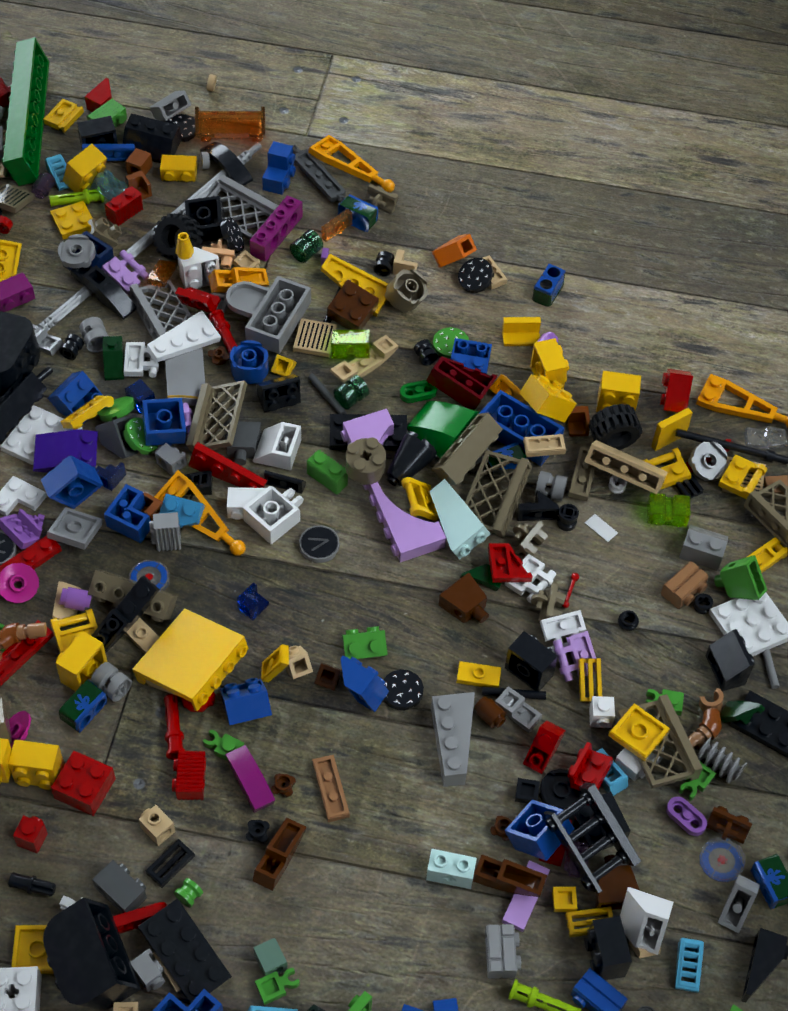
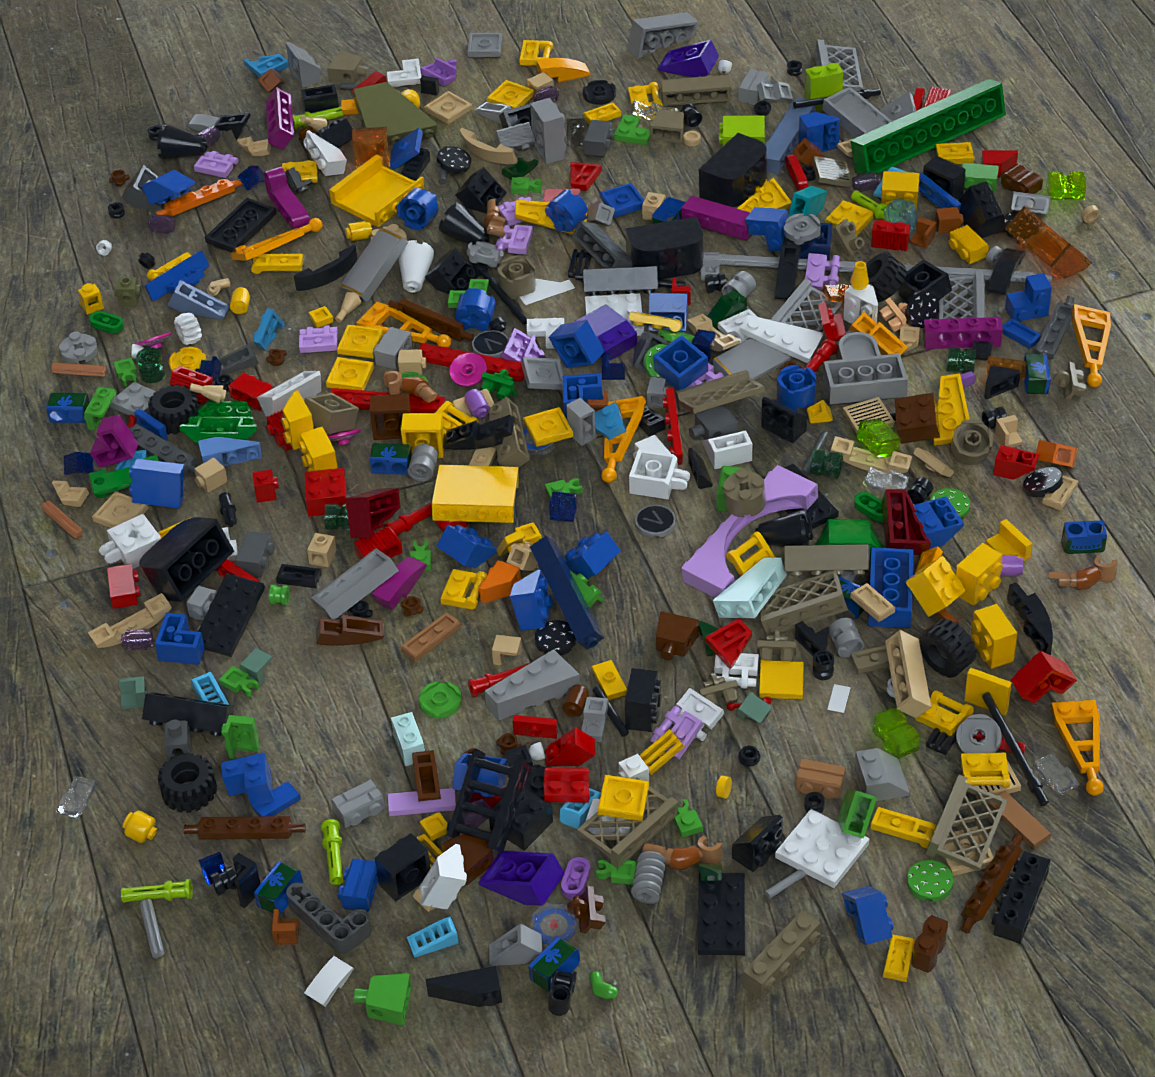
camera: 65 degrees right, 10 degrees down
(33, 676) = (387, 415): none -> reddish brown brick
(39, 238) = (808, 201): none -> teal slope
(46, 269) = (768, 223): none -> blue brick
(57, 566) = (500, 382): none -> green hips
(58, 376) = (681, 290): none -> red panel
(114, 386) = (721, 341): none -> tan slope
(129, 784) = (336, 517): none -> clear green wheel
(137, 96) = (1021, 180): none -> reddish brown brick
(149, 559) = (548, 427): none -> yellow plate
(149, 756) = (370, 510): none -> dark red wedge
(167, 77) = (1067, 186): none -> clear neon green brick
(227, 593) = (560, 486): none -> bright green plate
(228, 818) = (355, 584): none -> light grey slope
(264, 645) = (531, 533): none -> yellow plate
(286, 735) = (458, 586): none -> yellow plate
(301, 227) = (983, 349): none -> black plate
(307, 195) = (1021, 333): none -> blue tile
(308, 695) = (499, 581): none -> orange slope
(328, 612) = (591, 554): none -> blue slope
(344, 238) = (1000, 381): none -> black slope
(370, 651) = (567, 592): none -> dark blue brick
(394, 734) = (505, 645): none -> tan panel
(395, 368) = (880, 481): none -> clear slope
(401, 327) = (933, 463): none -> tan plate
(412, 819) = (440, 699): none -> bright green tile
(423, 766) = (481, 684): none -> red pin
(444, 279) = (1013, 462): none -> red slope
(500, 759) = (535, 726): none -> red plate
(503, 785) = (507, 742): none -> reddish brown plate
(527, 771) = (537, 752): none -> white hinge
(560, 553) = (781, 679): none -> yellow tile
(586, 589) = (754, 709): none -> sand green panel
(589, 307) = (1088, 577): none -> medium nougat piece
(608, 358) = (1037, 621): none -> black slope
(653, 655) = (723, 786): none -> yellow tile
(665, 857) = (523, 876): none -> dark purple slope

